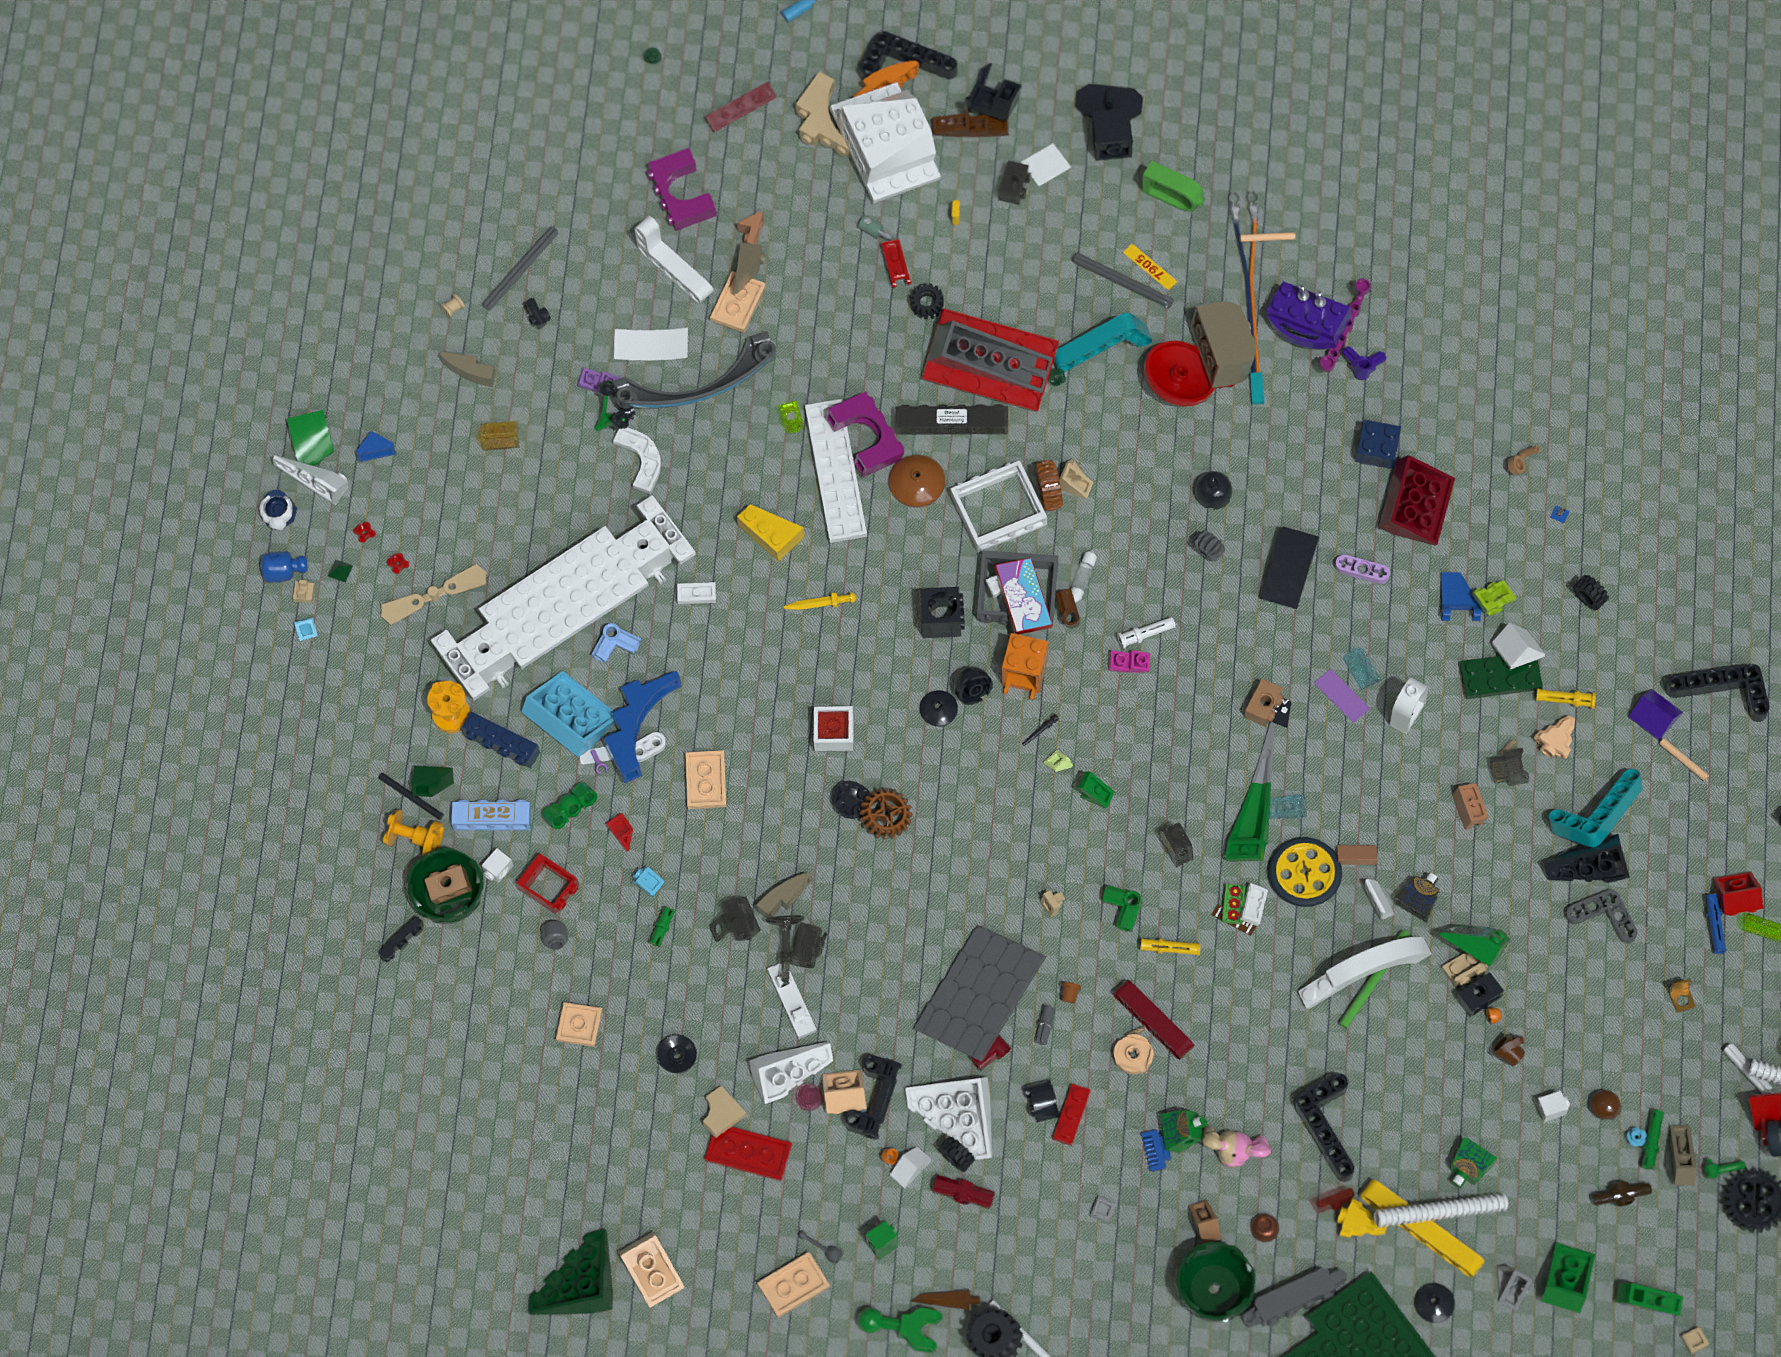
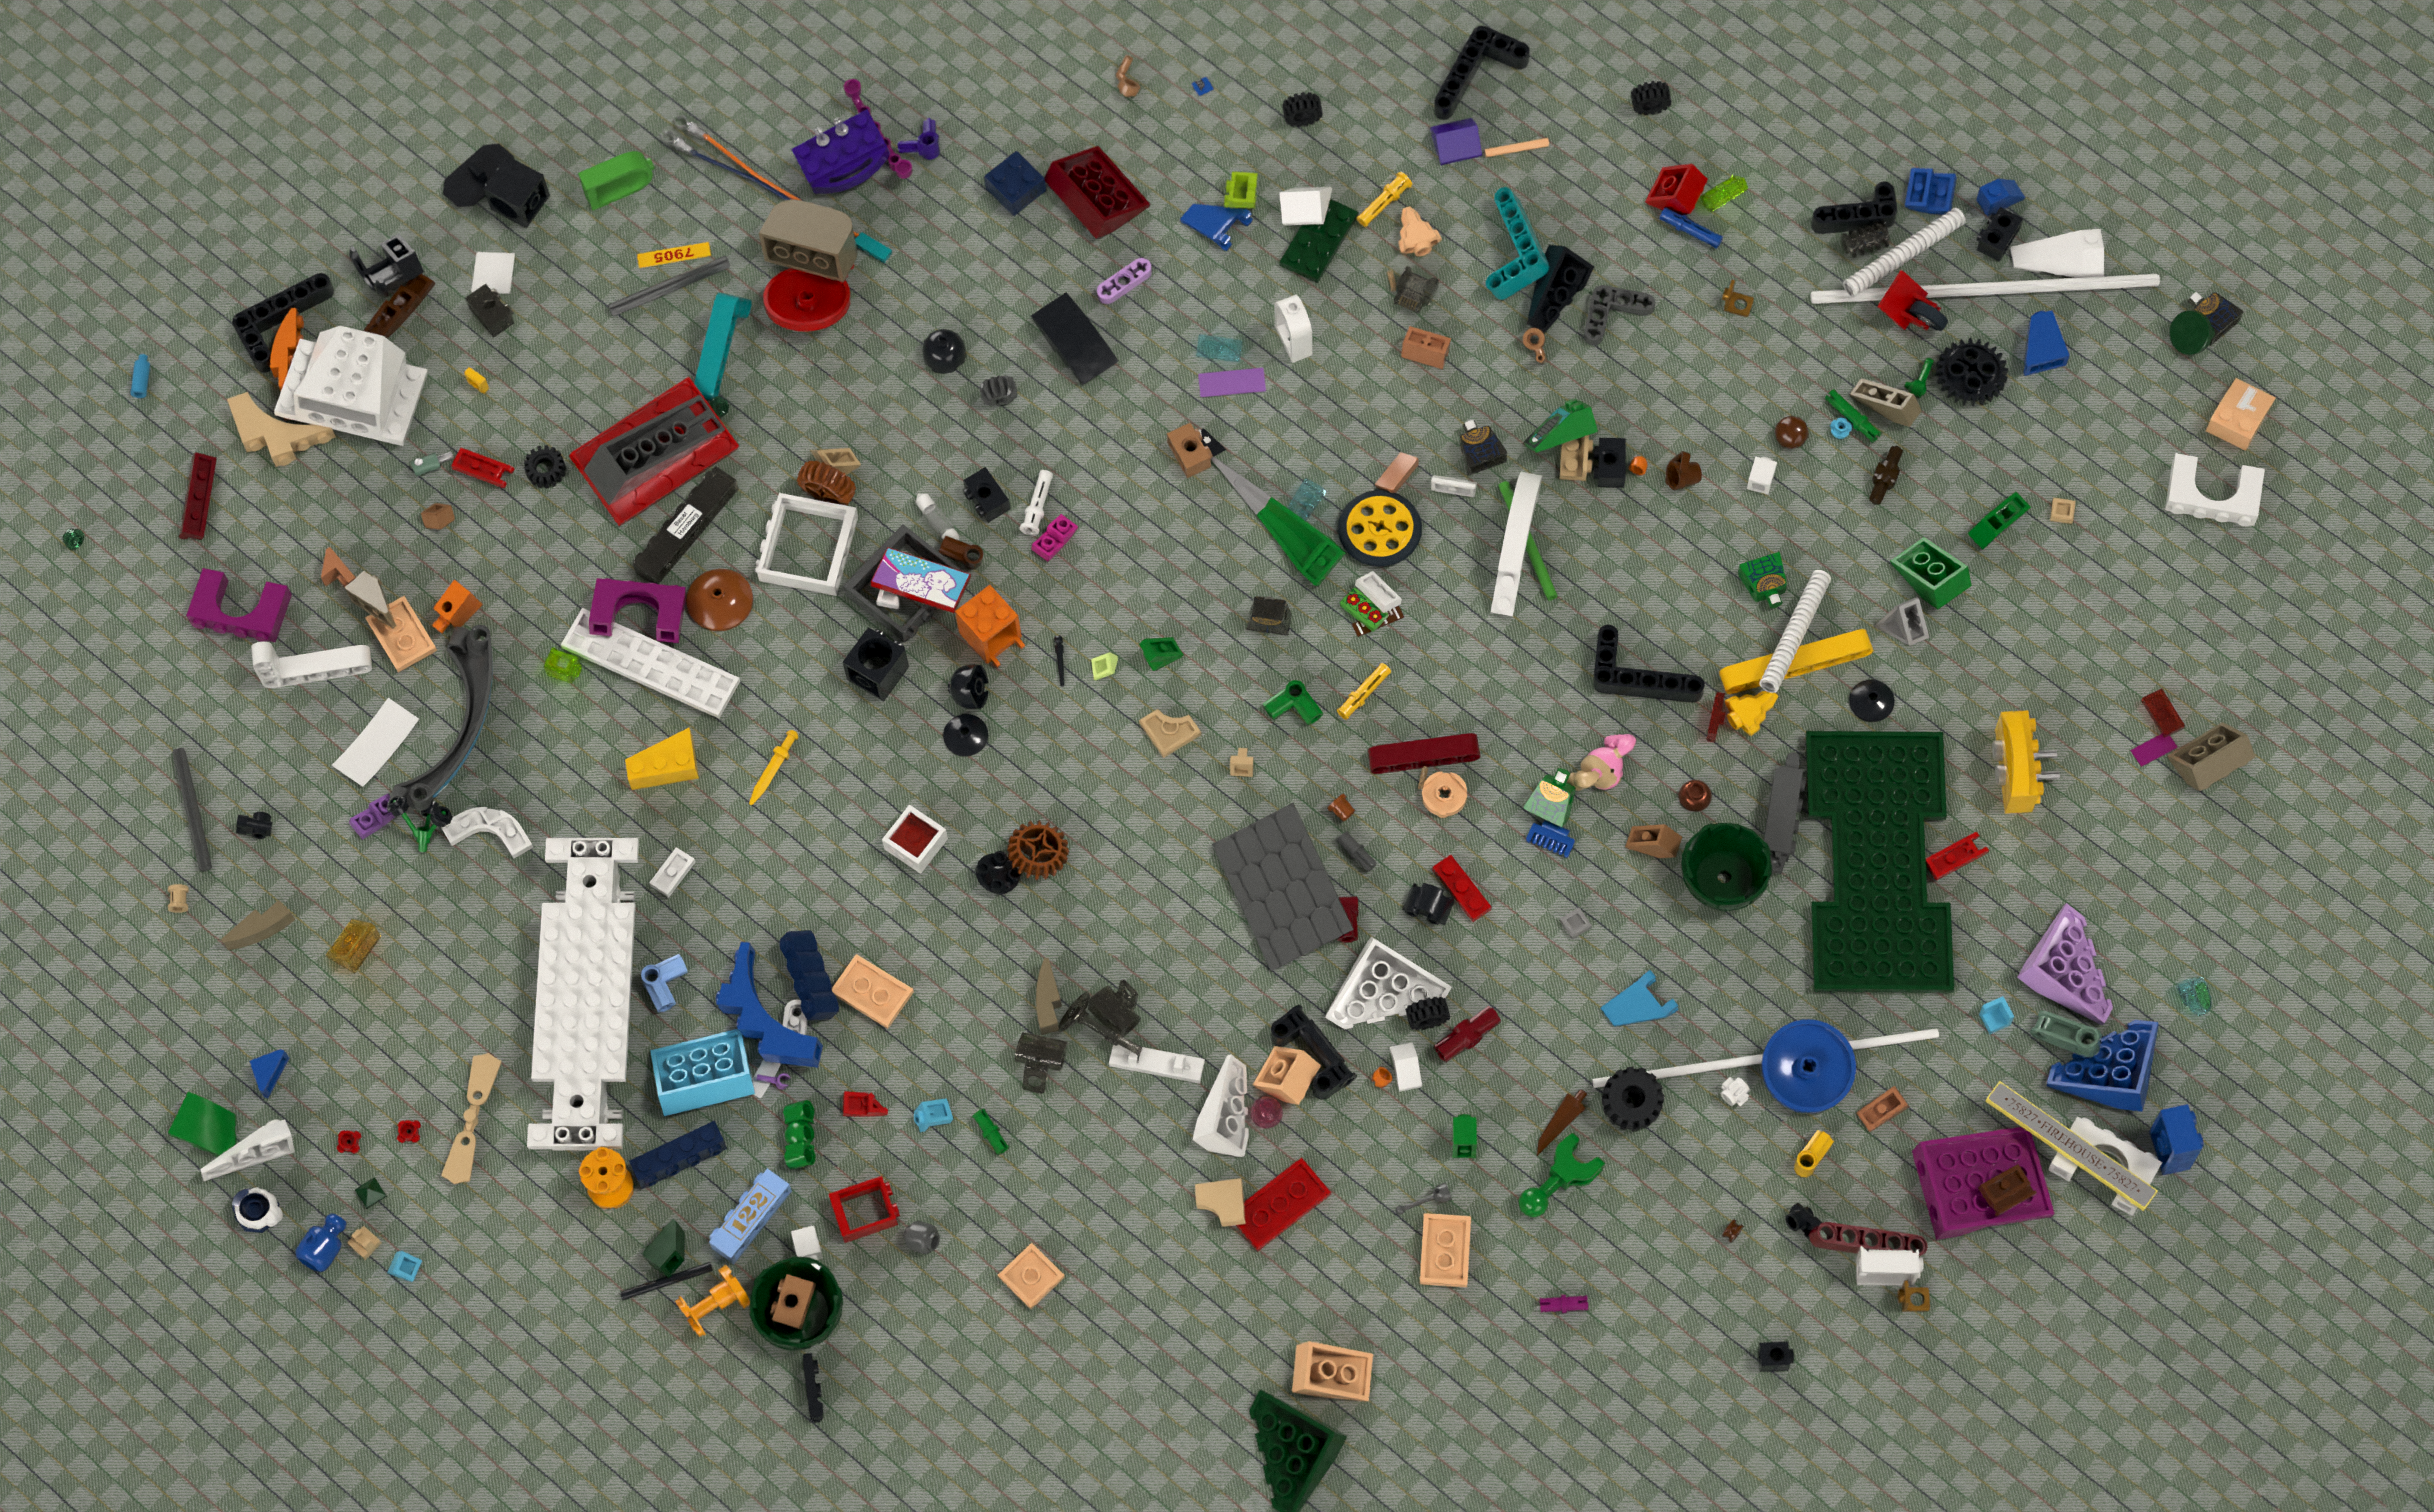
camera: 55 degrees left, 0 degrees up
(677, 1045) = (1129, 1193): black dish -> none
(686, 730) = (809, 975): none -> dark blue brick
(781, 320) = (455, 607): none -> orange torso
(840, 262) = (437, 516): none -> medium nougat slope
(1040, 838) = (1169, 733): none -> tan tile
(1073, 1293) = (1637, 1004): none -> dark azure flag
(1124, 604) = (984, 483): none -> black brick
(1267, 237) = (731, 136): light nougat bar -> none
(1532, 882) = (1537, 348): none -> medium nougat plate

